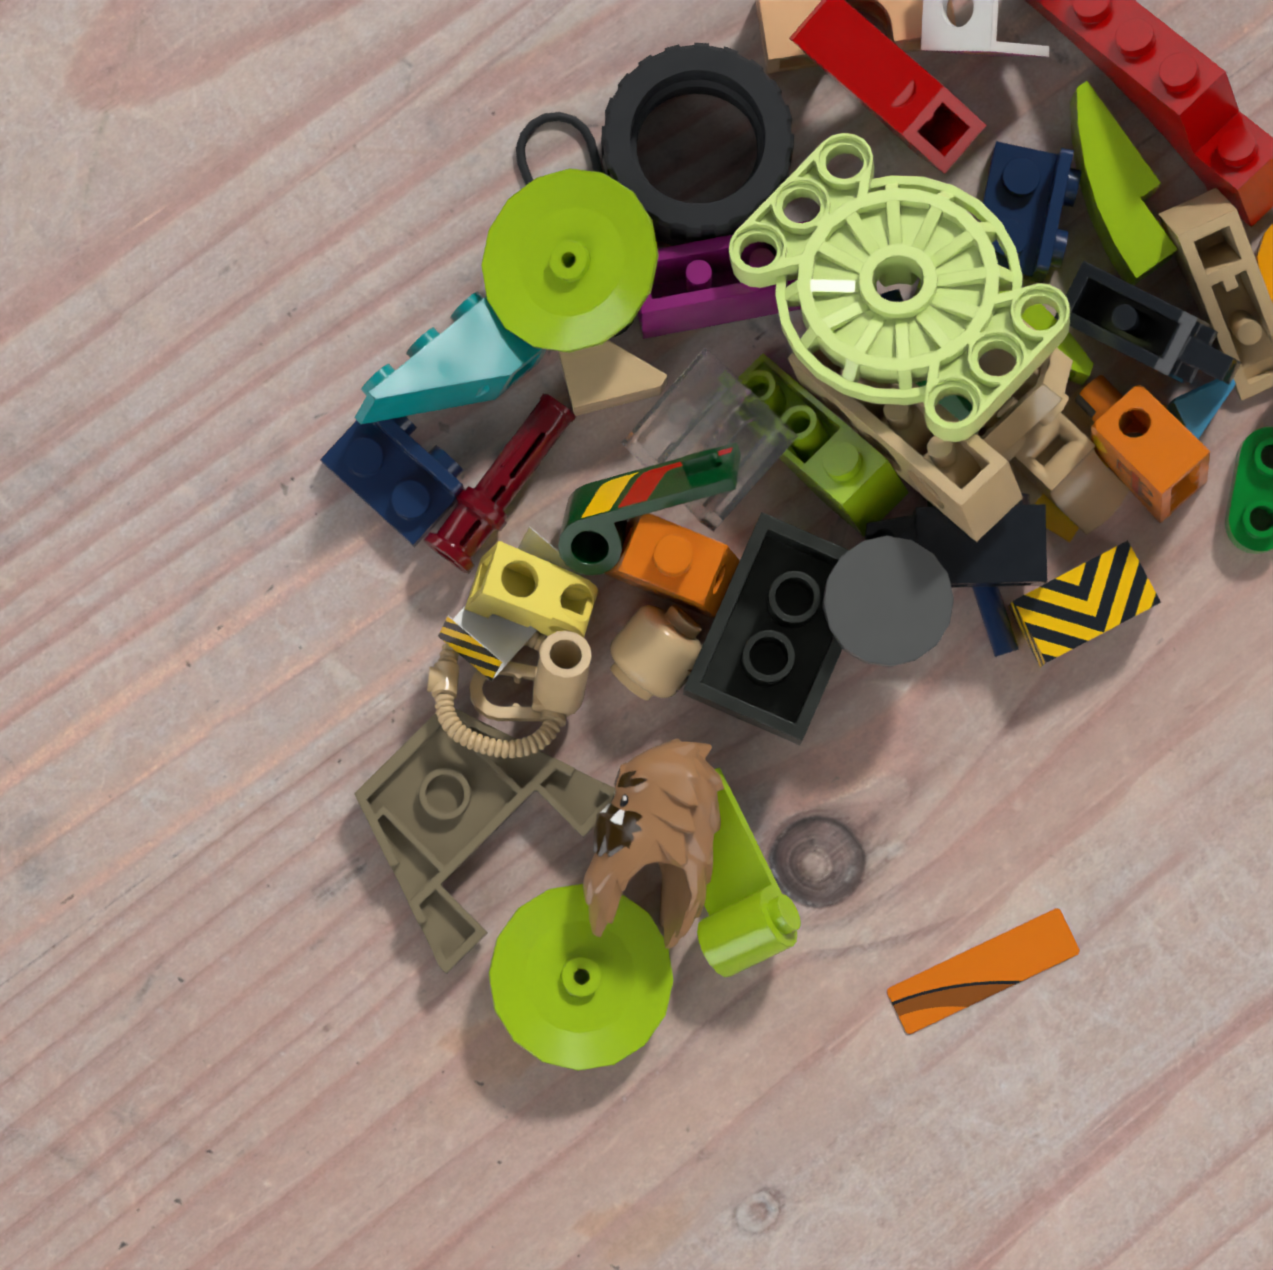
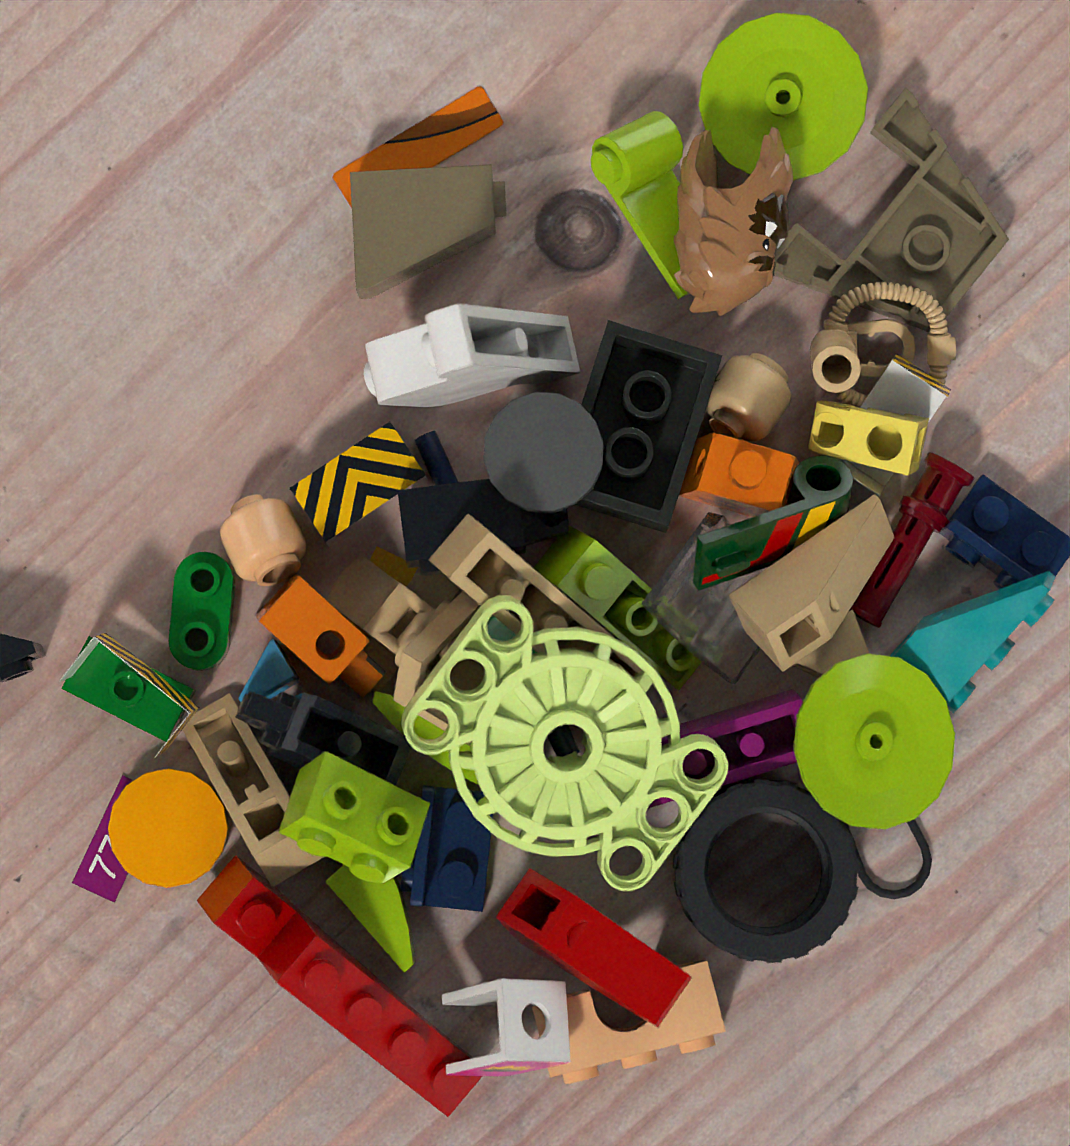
camera: 175 degrees right, 0 degrees up
(616, 429) = (811, 589): none -> tan slope
(953, 716) = (468, 354): none -> white brick
(994, 885) = (418, 220): none -> dark tan slope
(1127, 236) = (354, 818): none -> lime brick
(1192, 555) = (263, 540): none -> light nougat head

